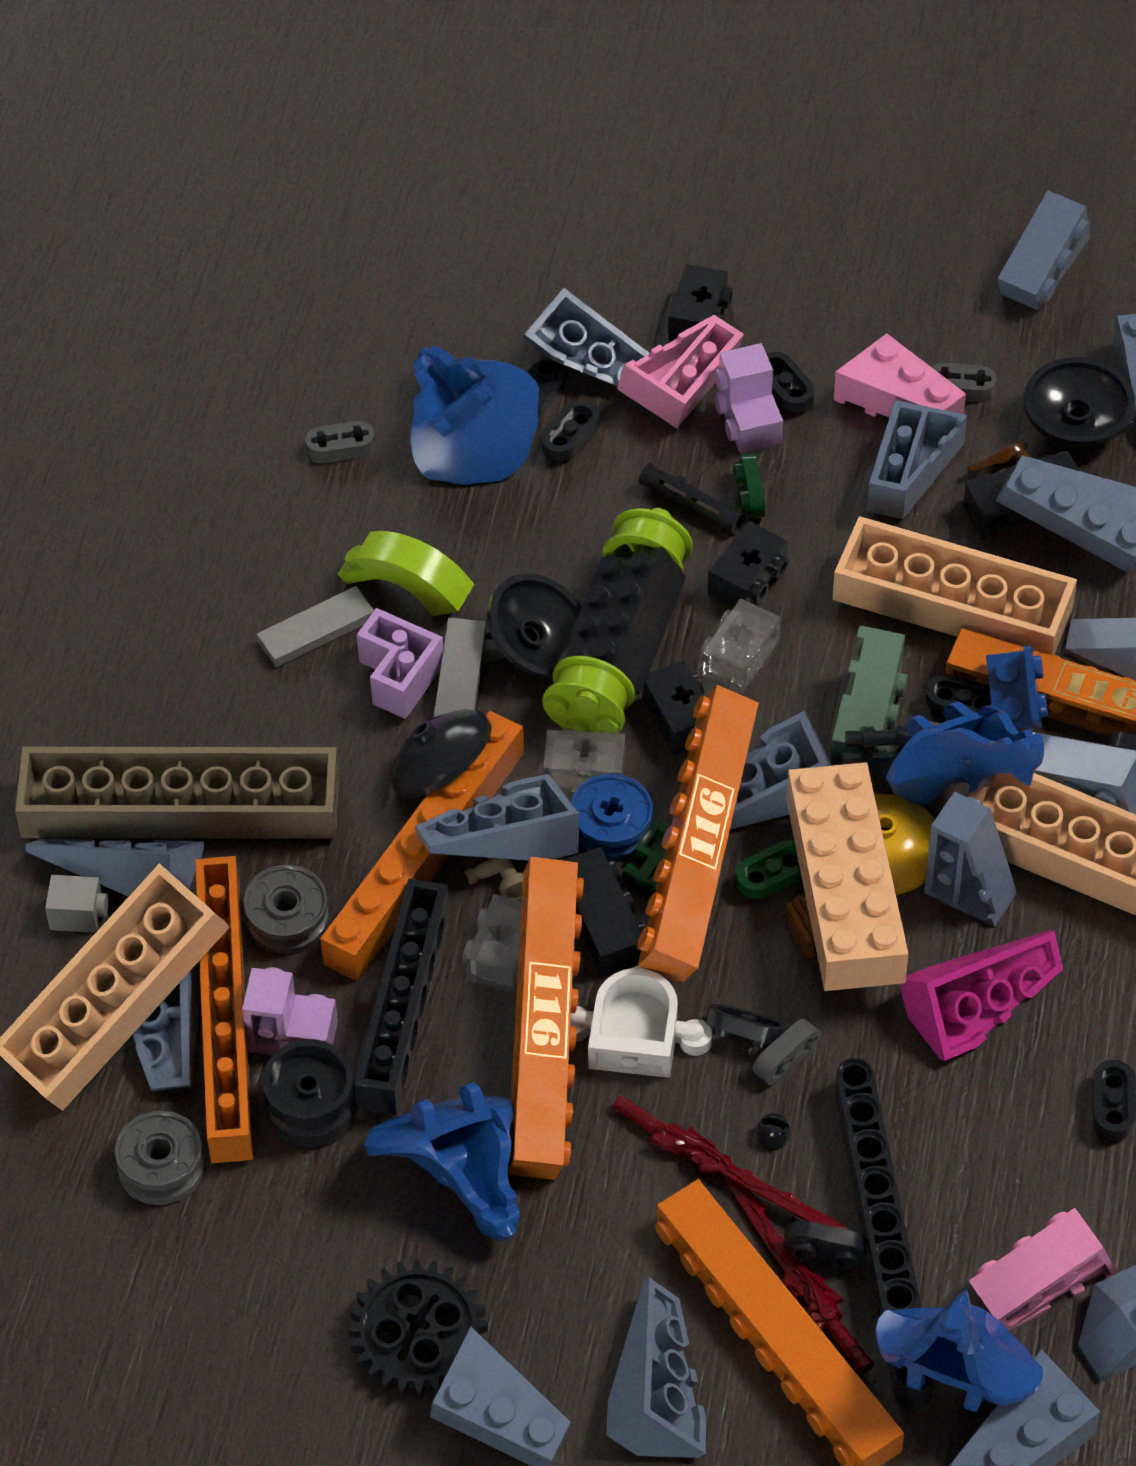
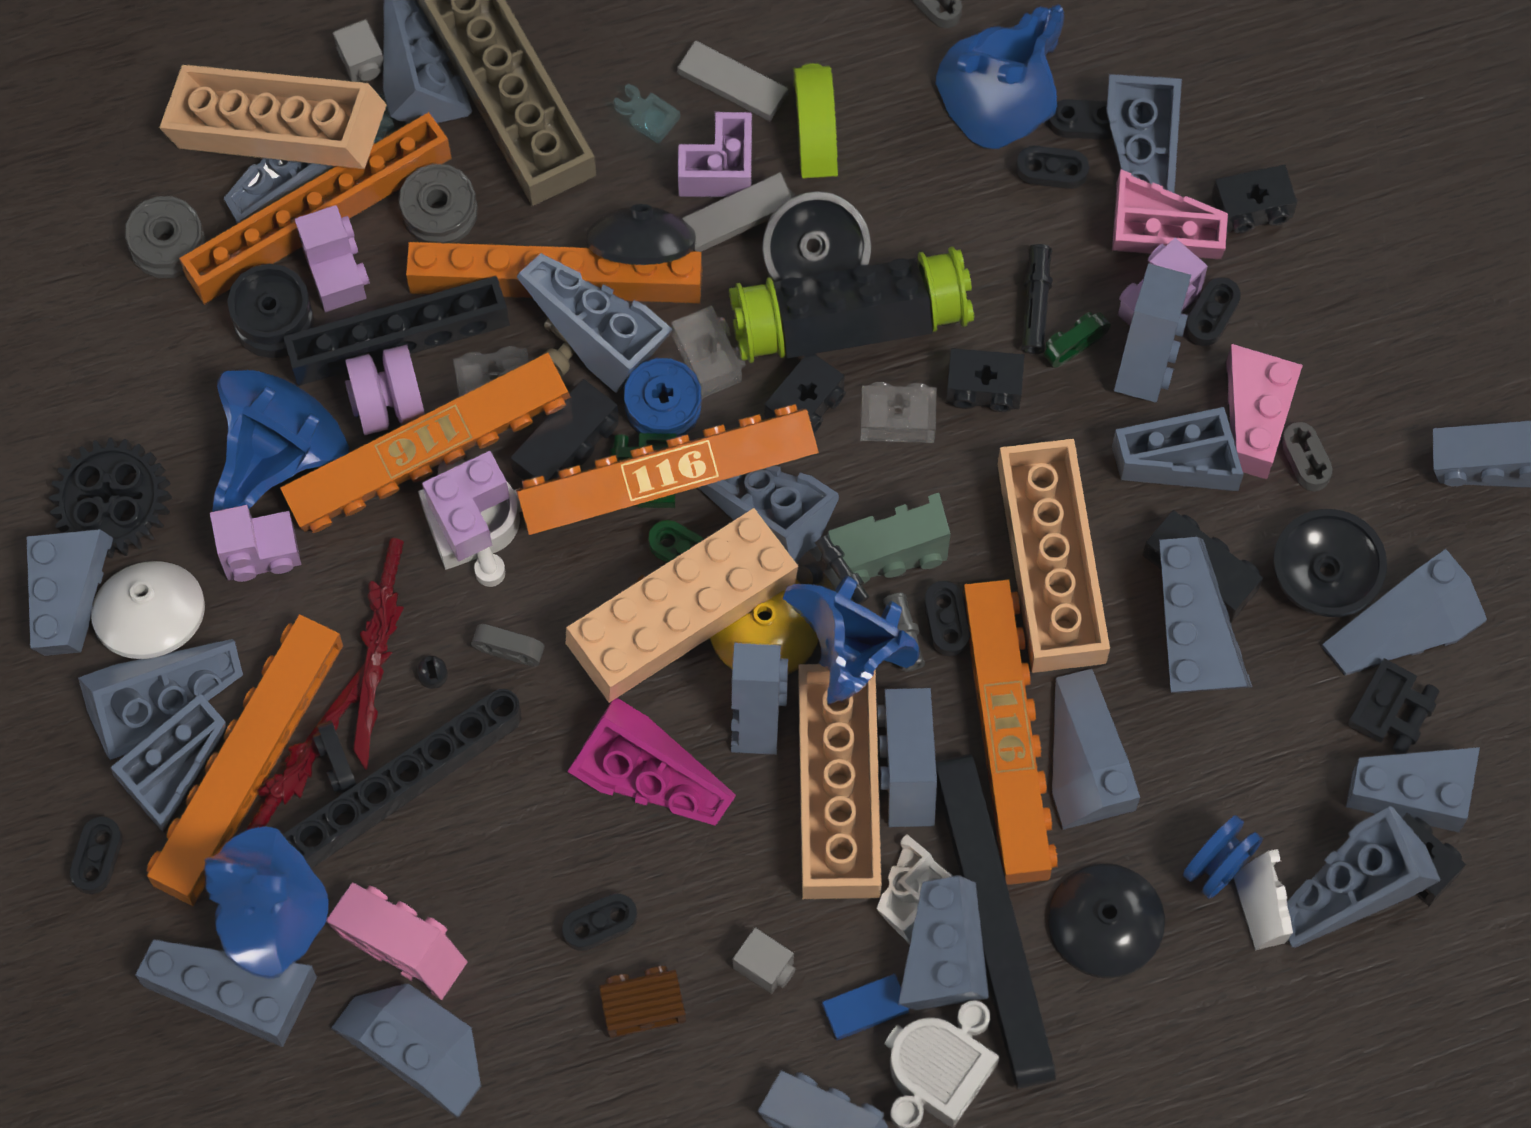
camera: 60 degrees right, 15 degrees up
(307, 700) = (648, 116): none -> clear light blue plate
(463, 1027) = (374, 391): none -> lavender wheel
(552, 1218) = (254, 544): none -> lavender brick
(577, 1358) = (150, 623): none -> white dish
(637, 1011) = (459, 498): none -> lavender brick
(733, 1021) = (516, 600): black plate -> none
(744, 1391) = (170, 760): none -> sand blue wedge
(800, 414) = (1152, 334): none -> sand blue wedge
(1001, 456) = (1250, 535): reddish brown bar -> none
(1015, 687) = (962, 654): blue bracket -> none

